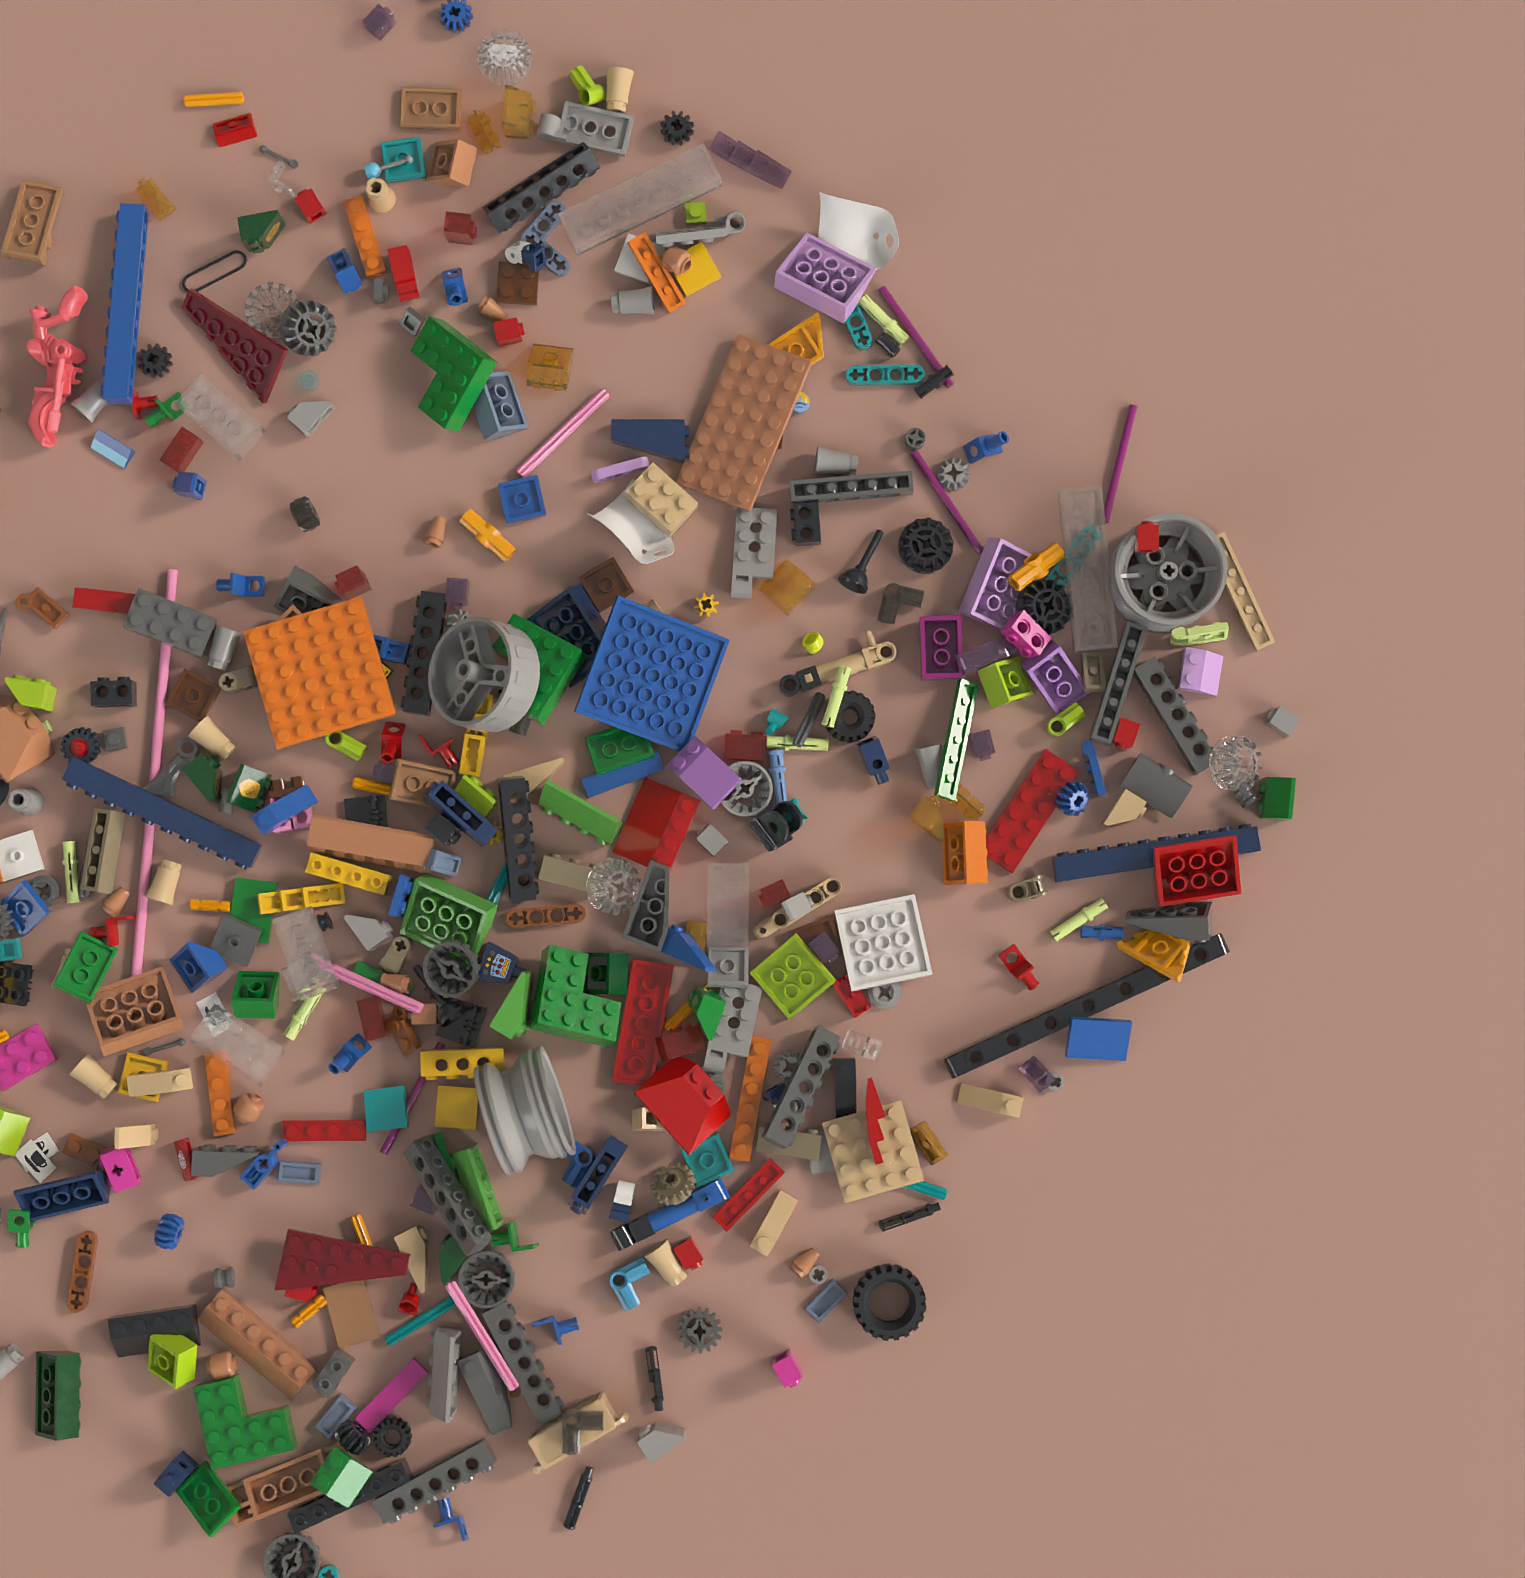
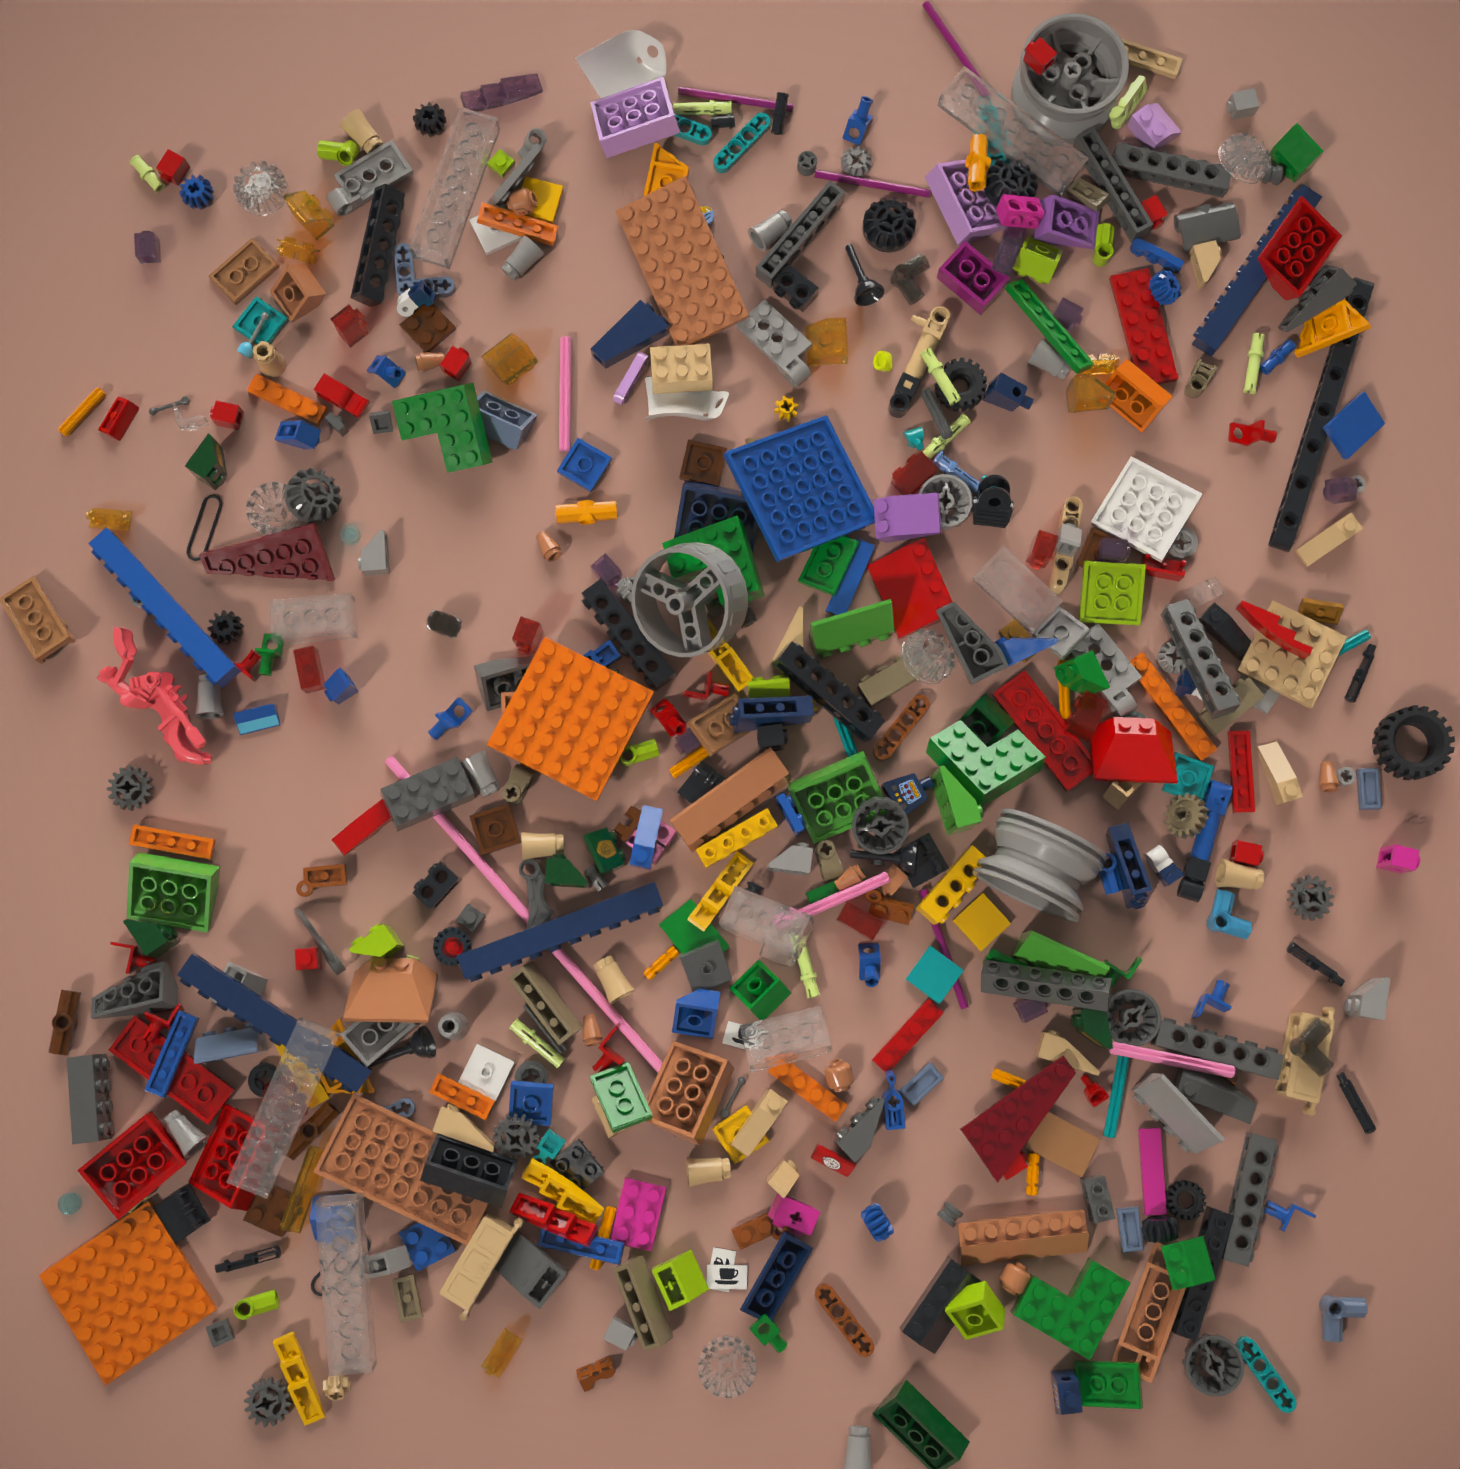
camera: 50 degrees left, 5 degrees down
(443, 862) = (794, 761): sand blue tile -> none
(711, 839) = (958, 559): light grey brick -> none

